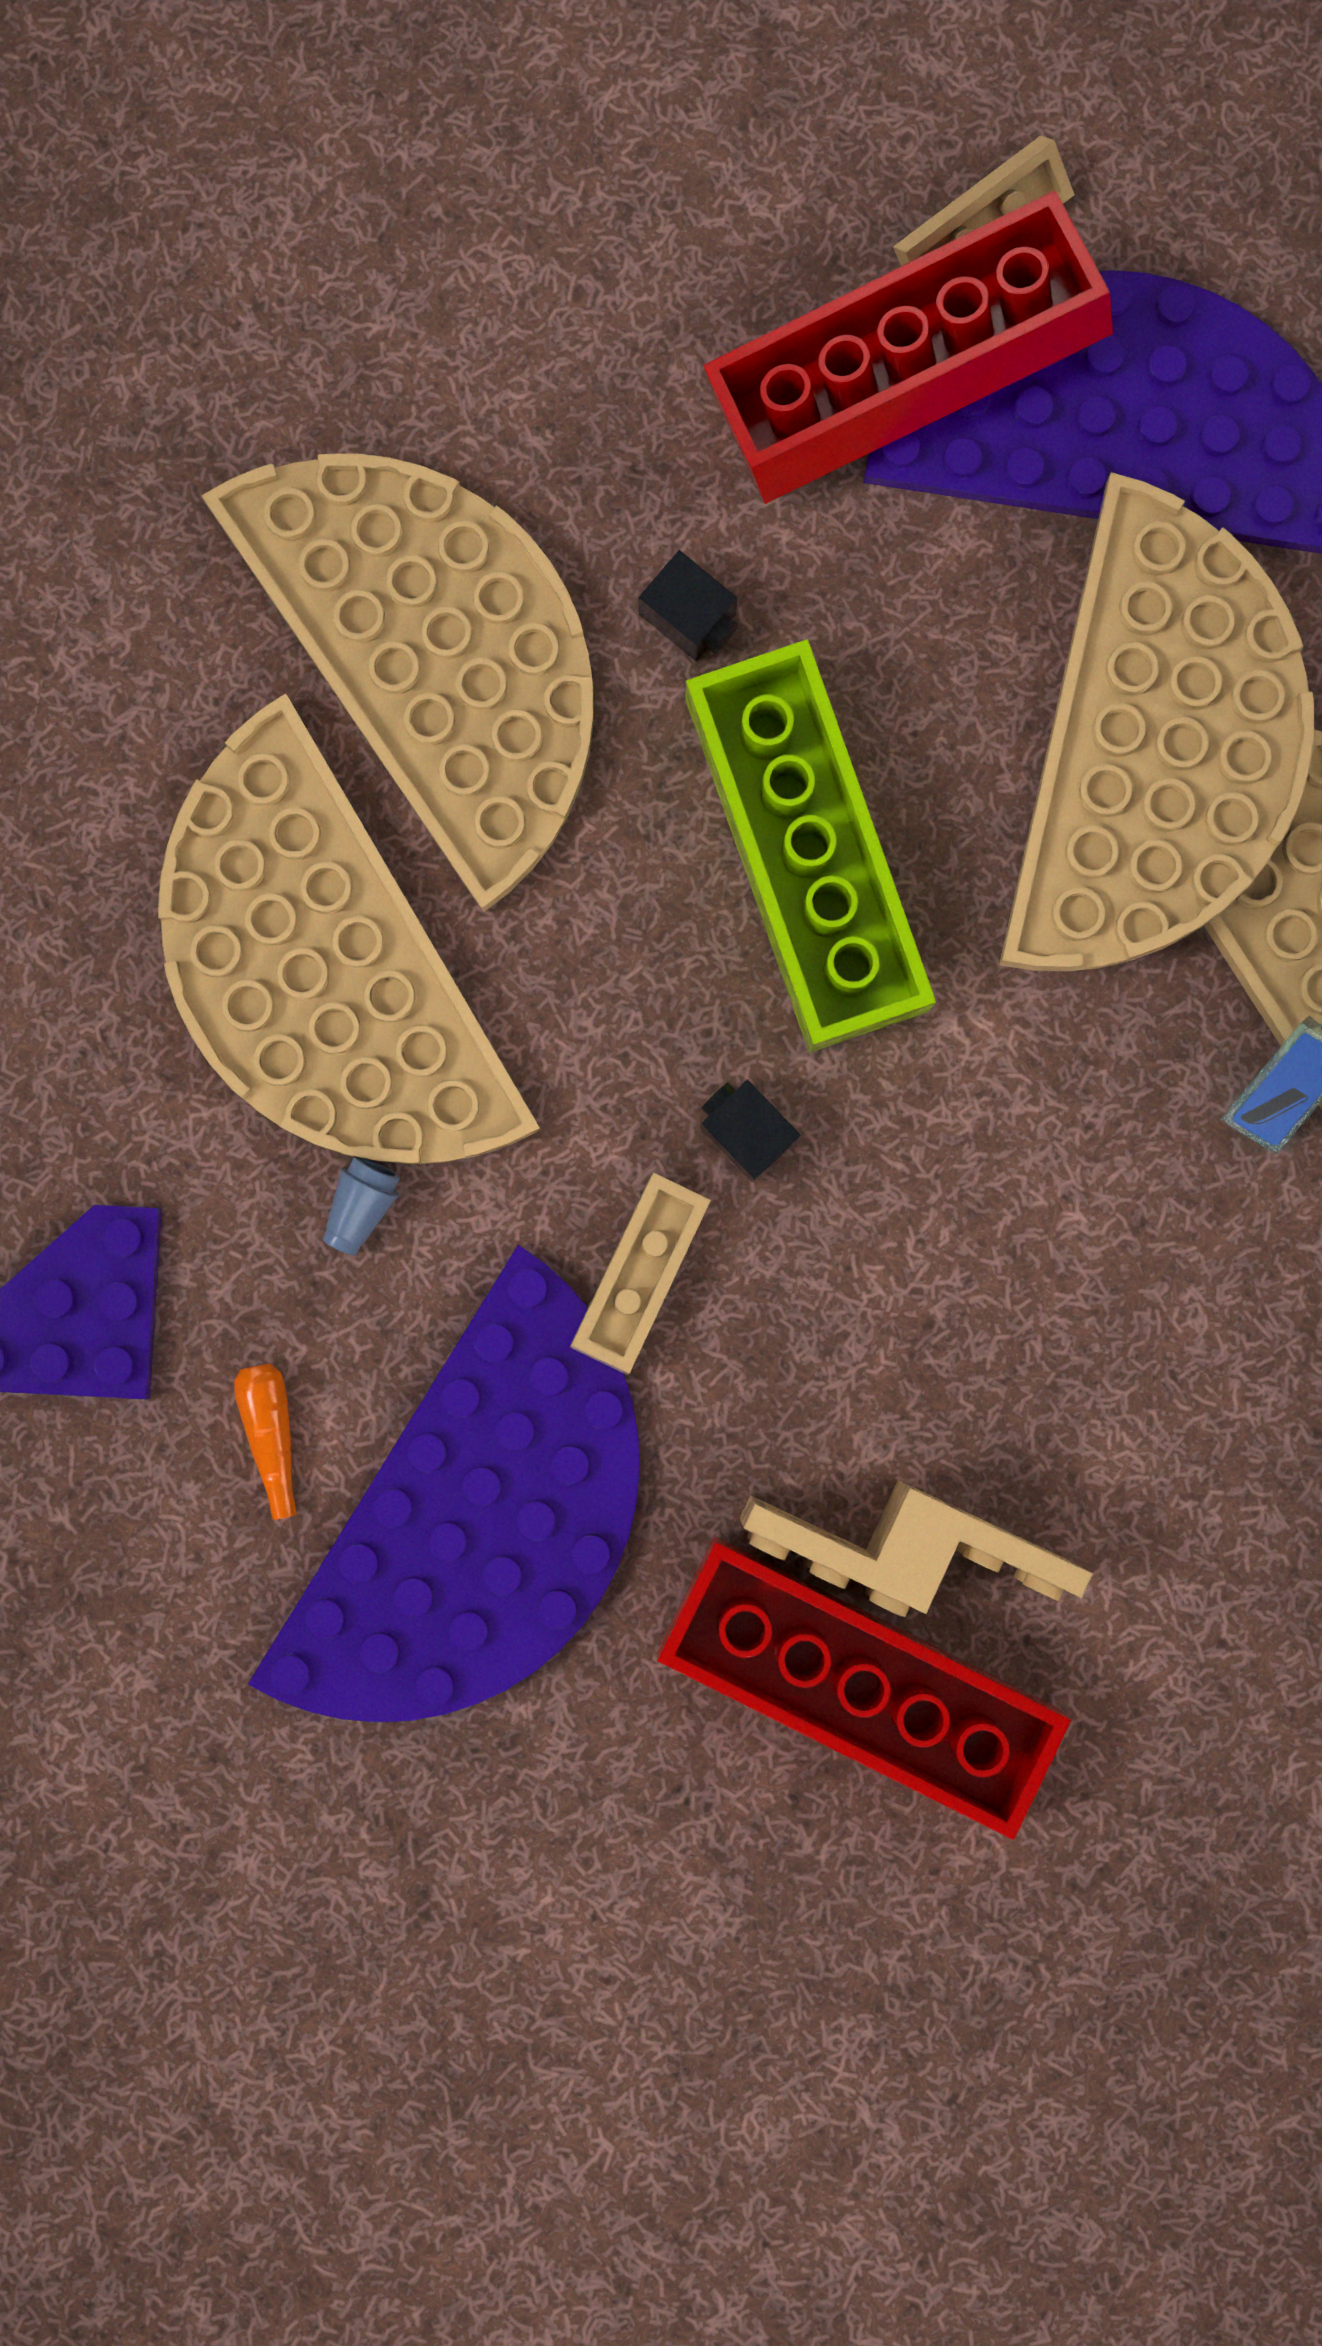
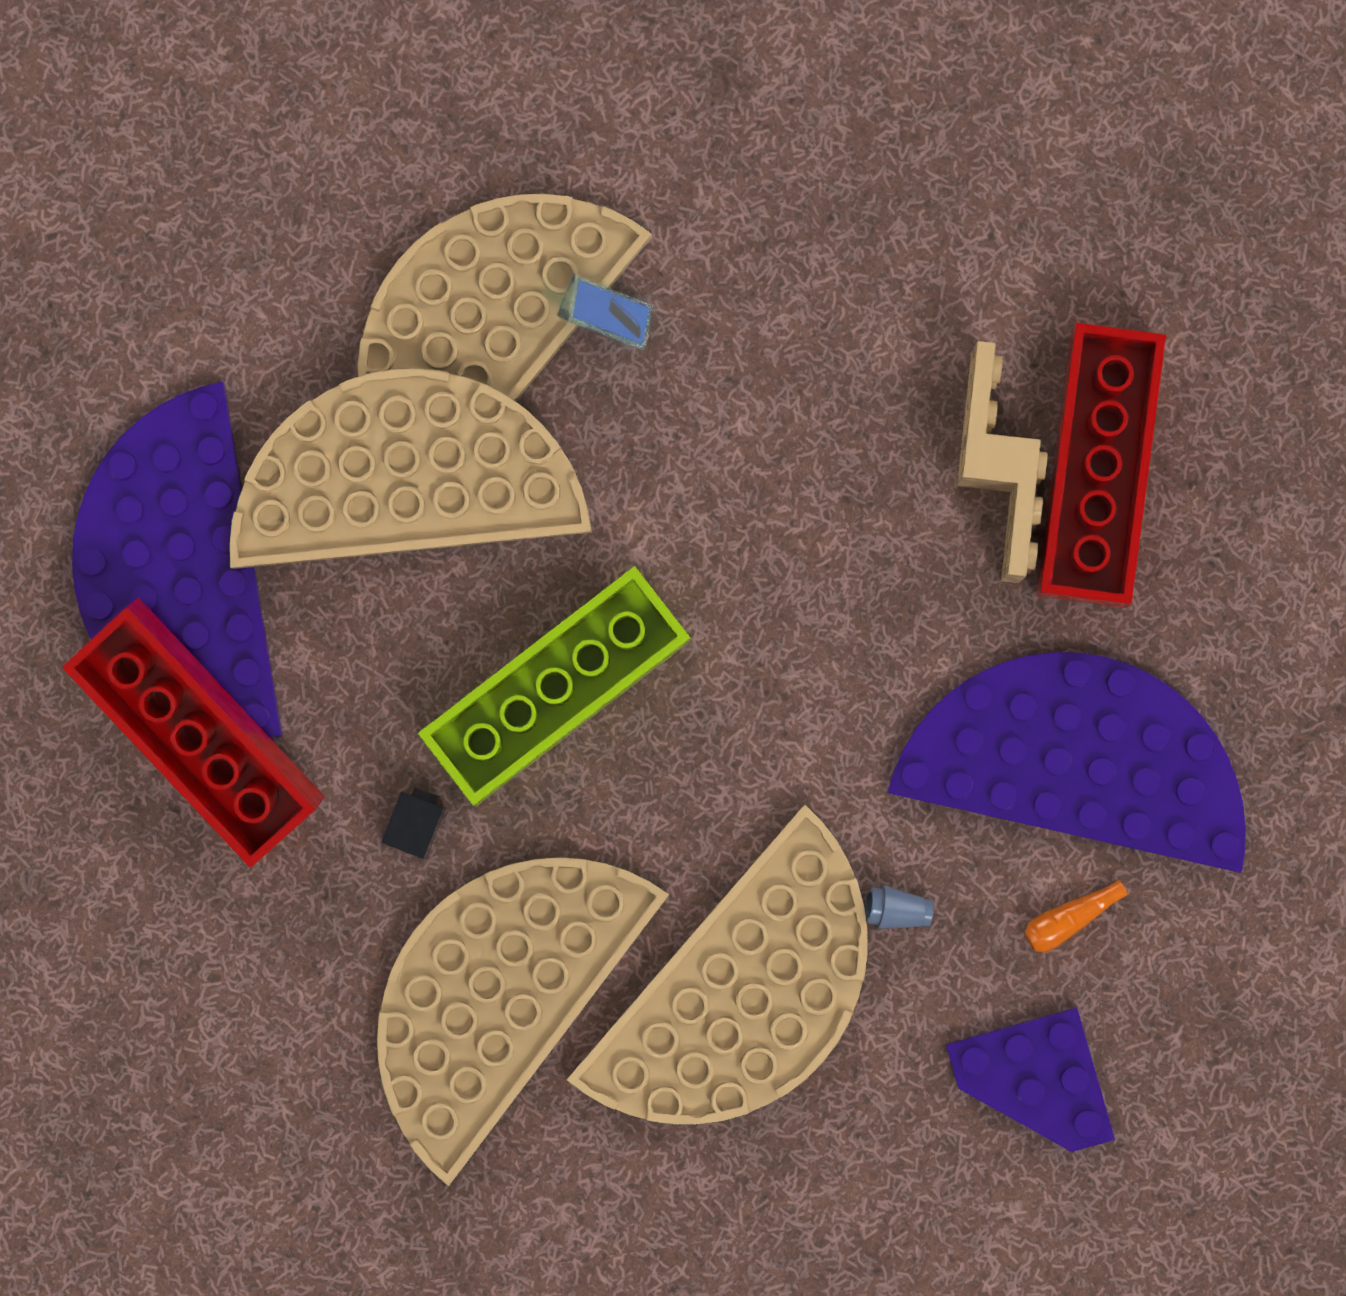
camera: 105 degrees left, 0 degrees up
(640, 1273) = (879, 703): tan plate -> none
(747, 1128) = (757, 664): black brick -> none
(1015, 183) = (69, 711): tan plate -> none

